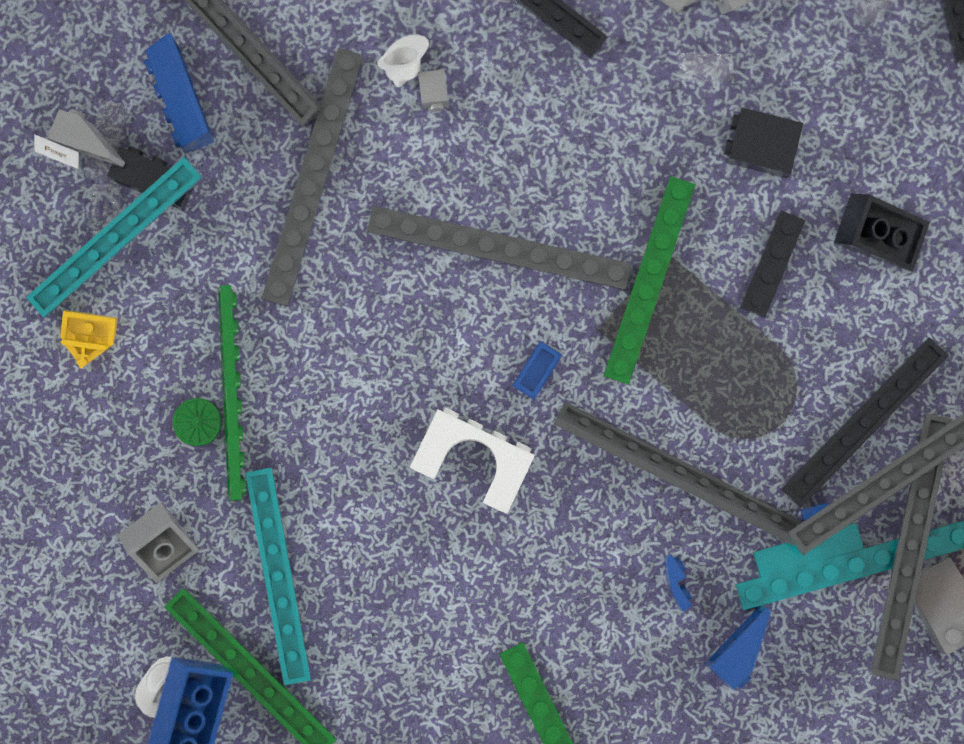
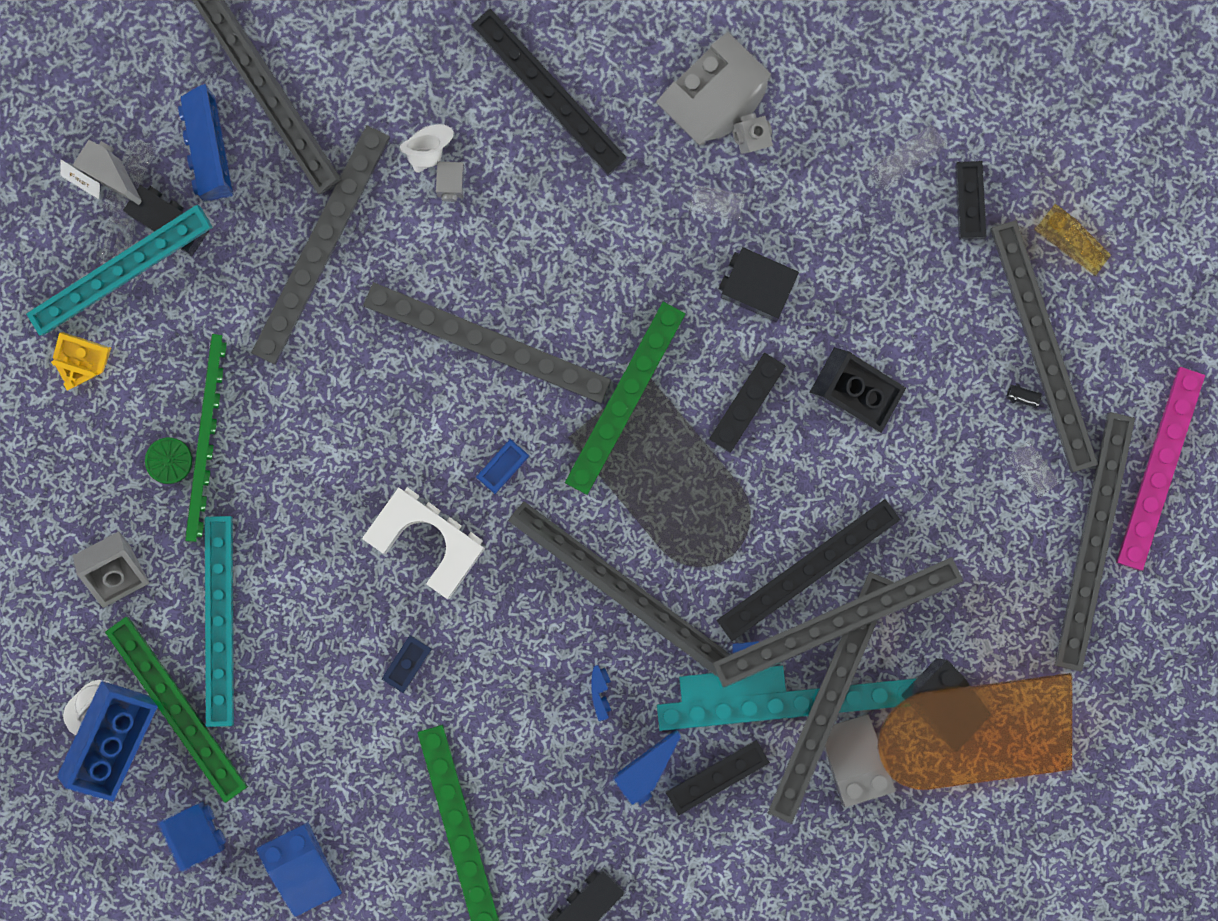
camera: 15 degrees right, 0 degrees up
(476, 586) = (406, 664): none -> dark blue plate
(810, 647) = (717, 777): none -> black plate

